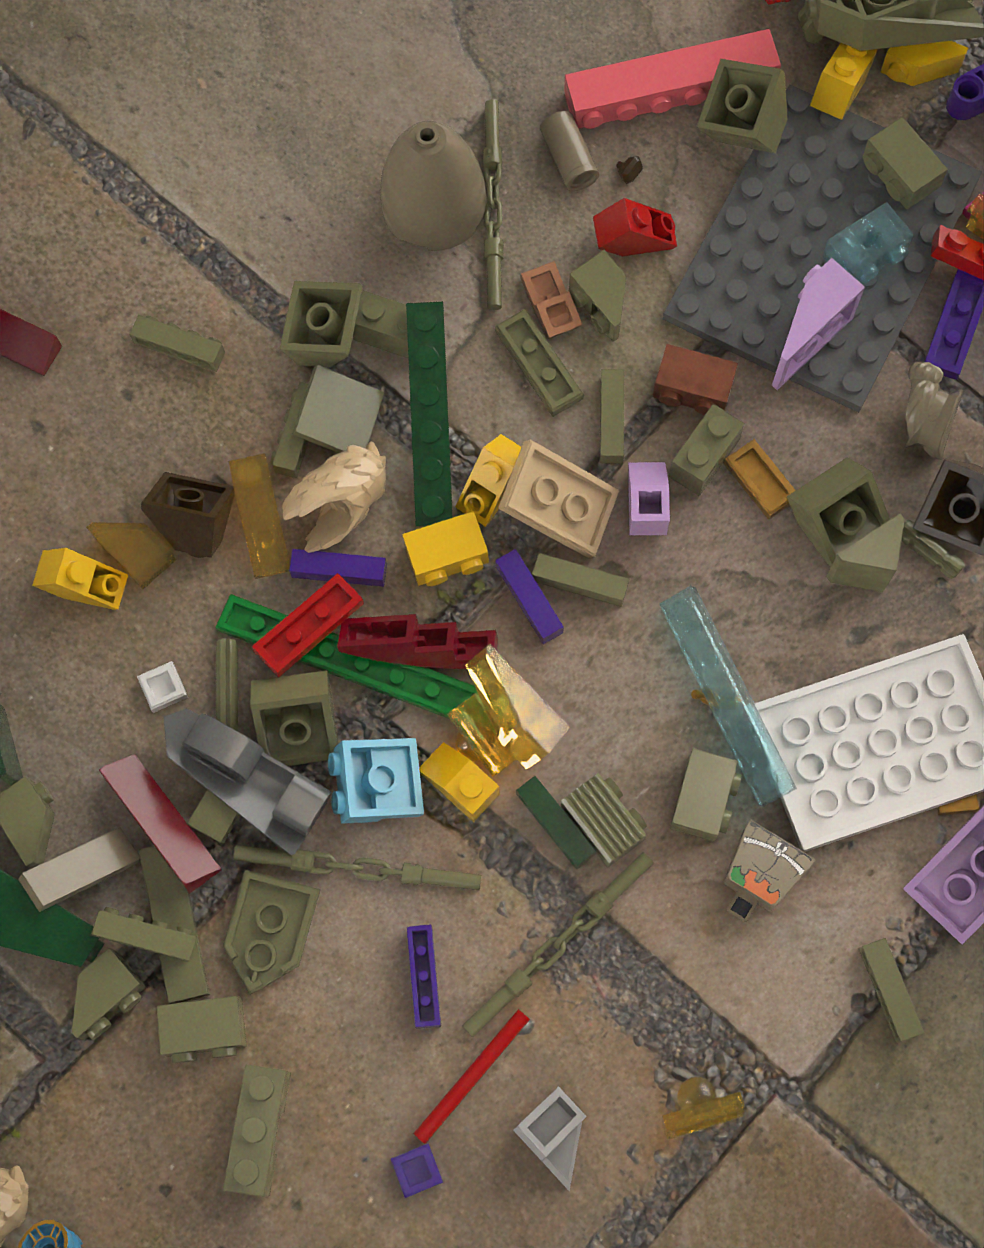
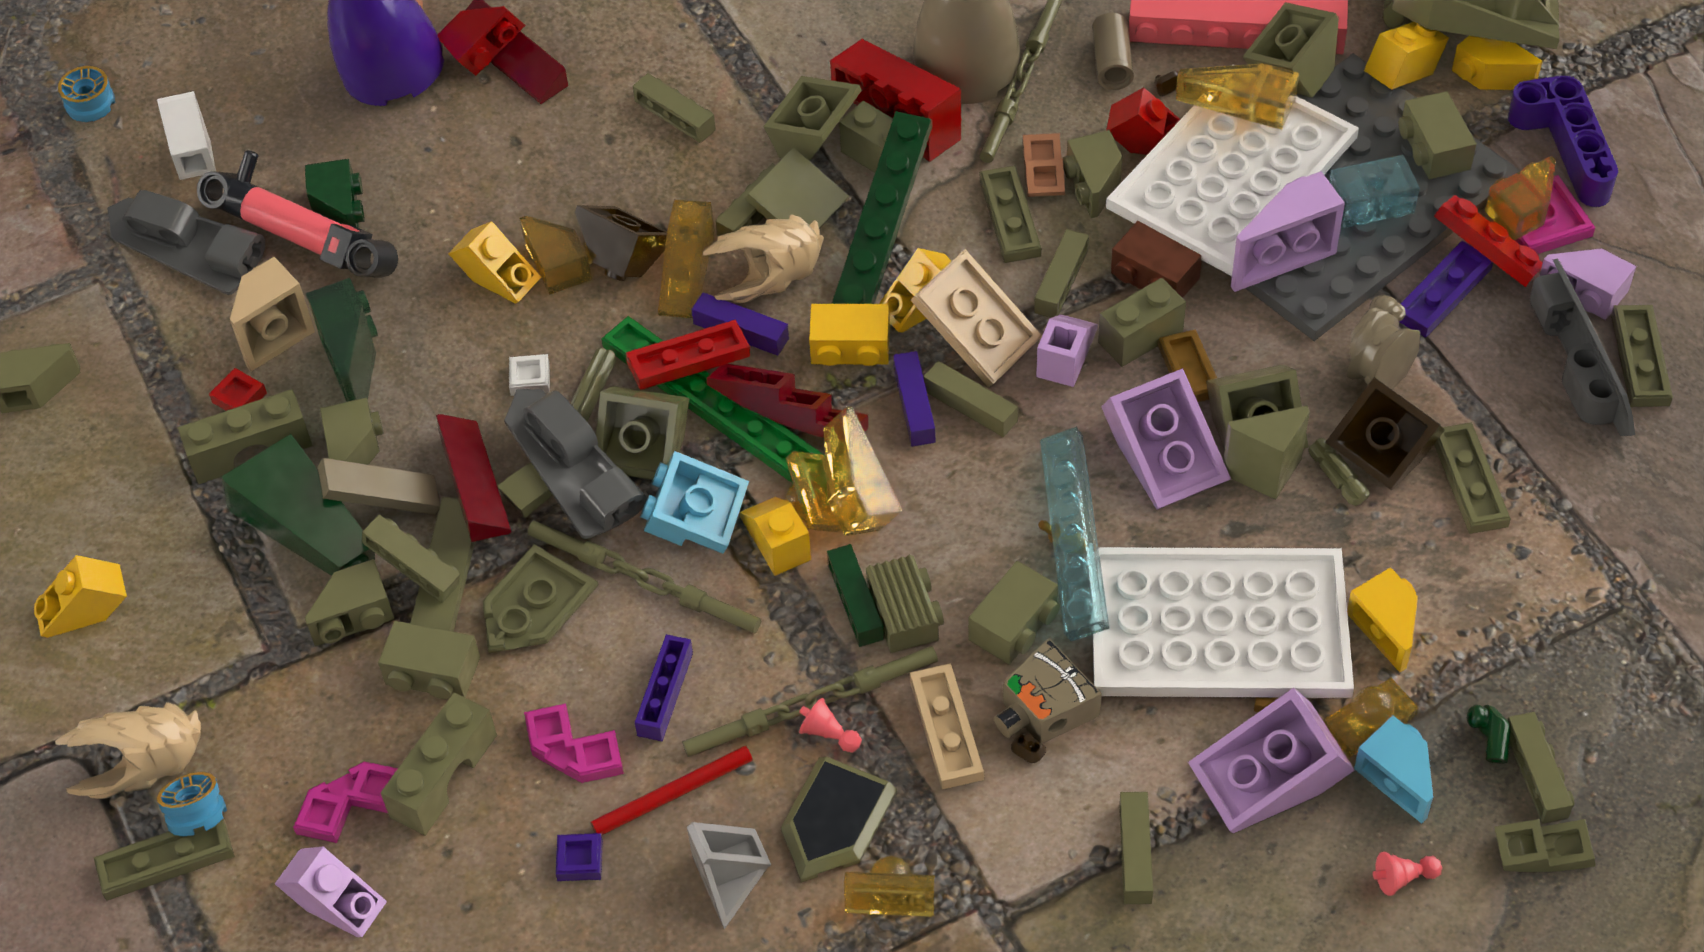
camera: 20 degrees right, 20 degrees down
(171, 1197) = (329, 804): none -> dark pink tile
(377, 1072) = (580, 758): none -> dark pink tile
(387, 264) = (902, 87): none -> red wedge
(578, 964) = (822, 723): none -> coral piece
(623, 1051) = (835, 817): none -> black tile
(687, 929) = (946, 726): none -> tan plate
(725, 175) = (1243, 91): none -> clear yellow slope
(732, 258) = (1222, 172): none -> white plate
(763, 922) = (1028, 748): none -> dark brown rock
(771, 568) = (1166, 439): none -> lavender slope

